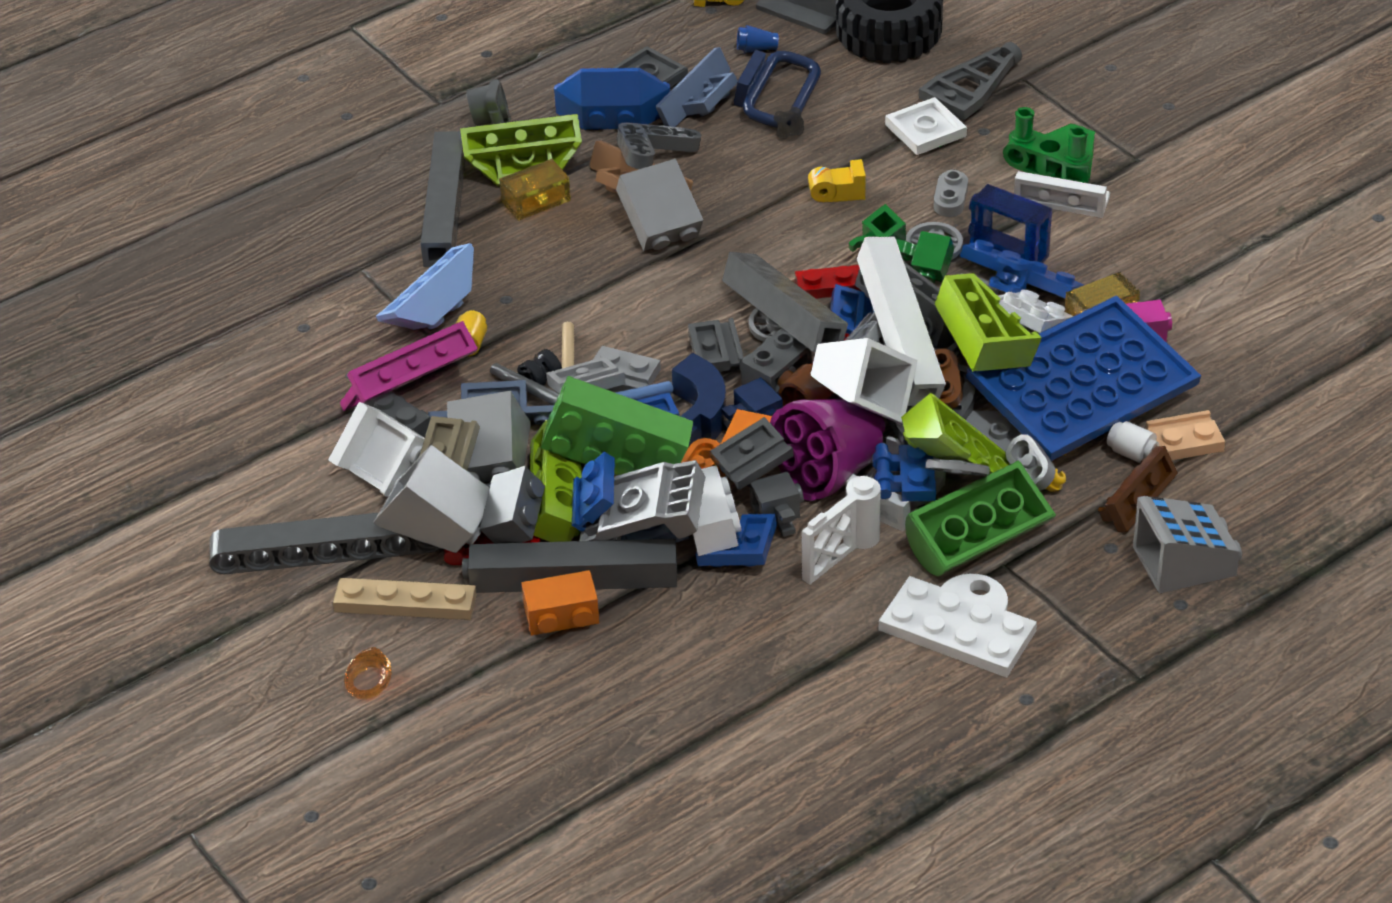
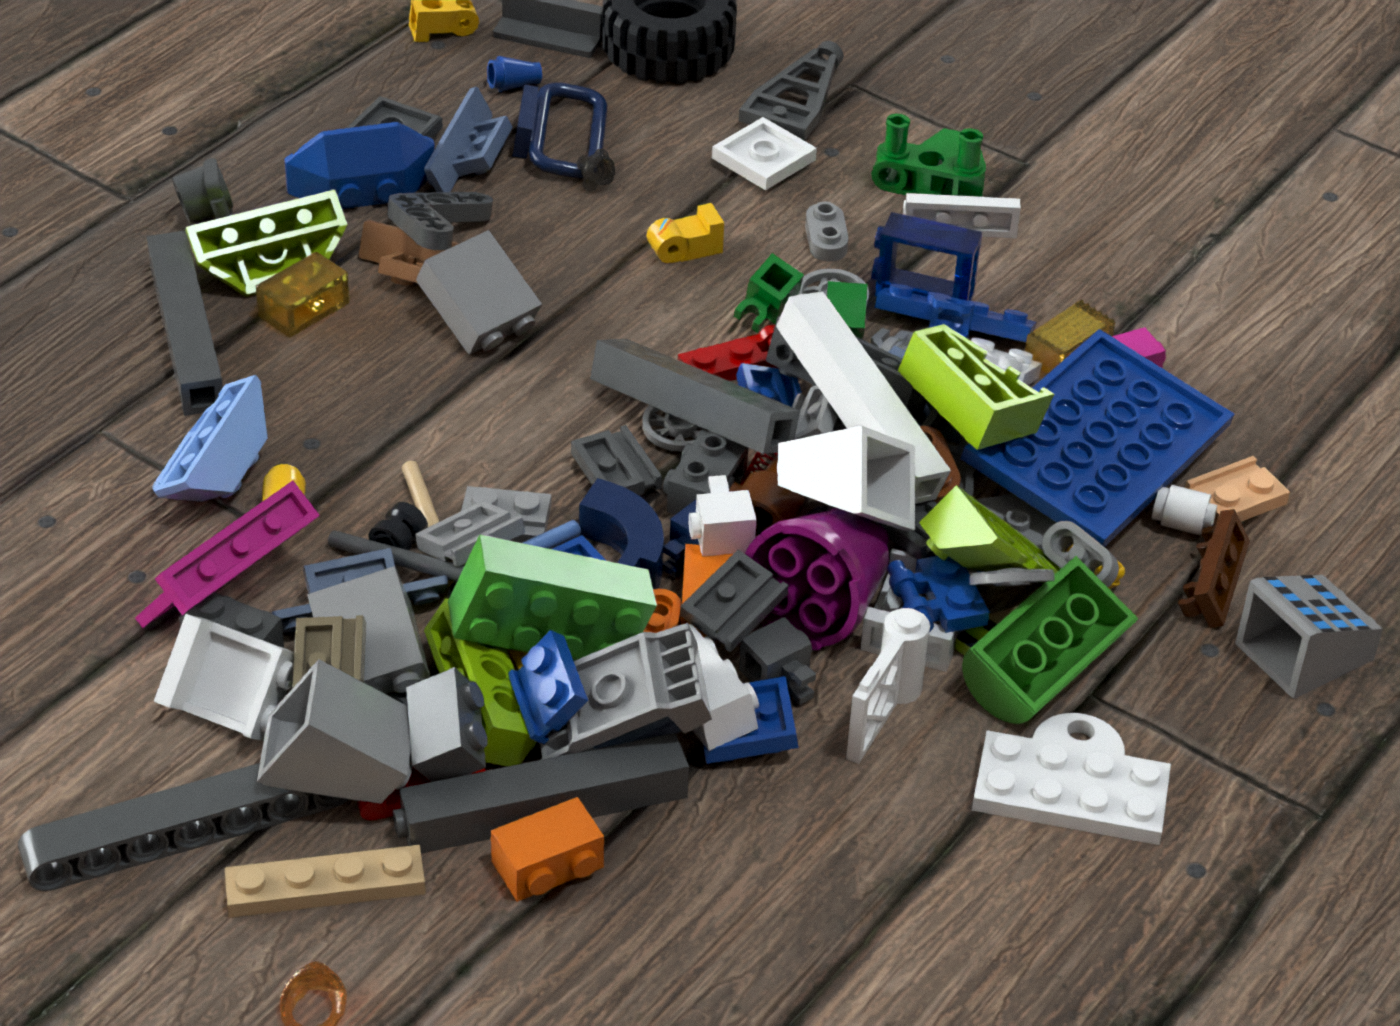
camera: 20 degrees left, 0 degrees up
(764, 393) = (723, 519): none -> white brick

